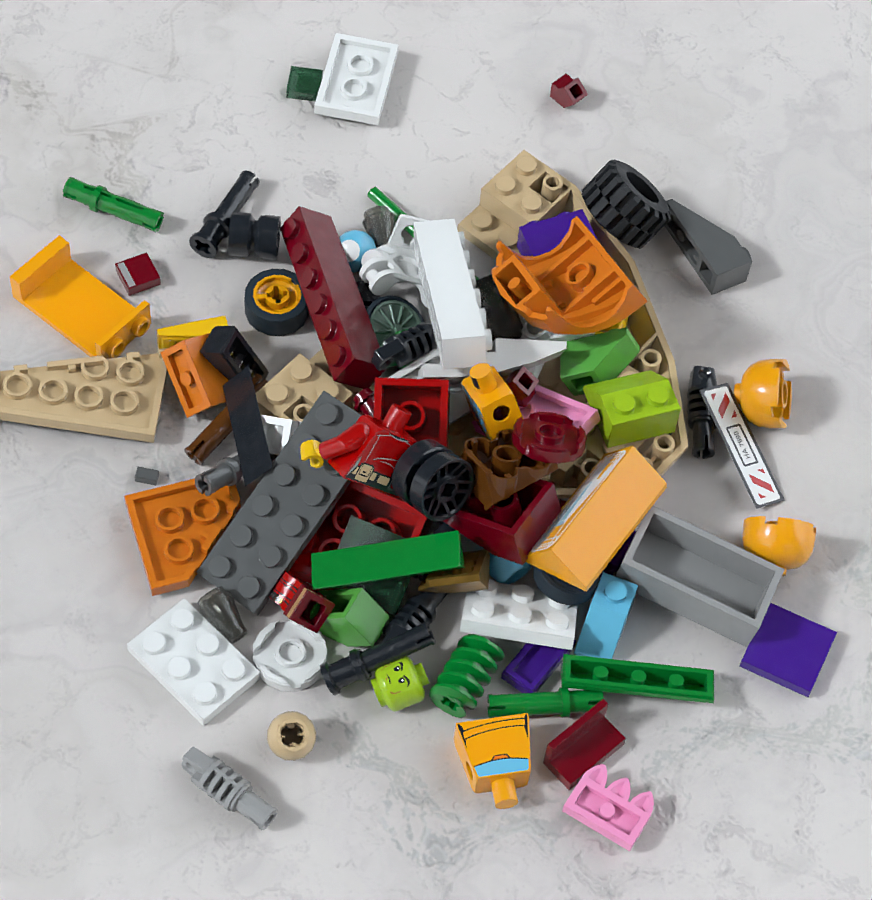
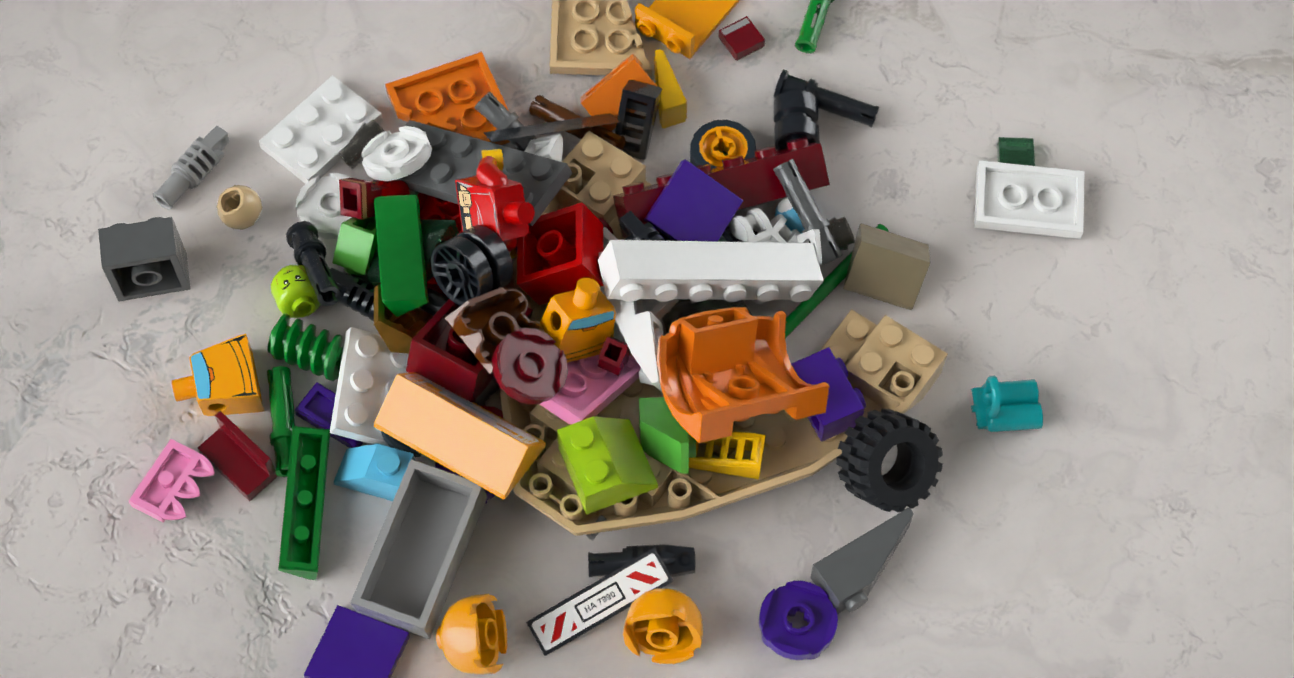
camera: 90 degrees right, 5 degrees up
(146, 475) = (514, 74): dark grey piece -> none
(258, 569) = (396, 154): none -> white tile
(354, 822) = (144, 258): none -> dark grey brick
(362, 229) = (806, 209): none -> dark grey pin
(366, 310) = (693, 206): none -> dark purple tile
(417, 186) = (887, 267): none -> dark tan slope
(561, 127) = (1007, 405): none -> teal piece
(567, 91) = (1063, 408): dark red piece -> none
(755, 319) = (787, 601): none -> dark purple plate

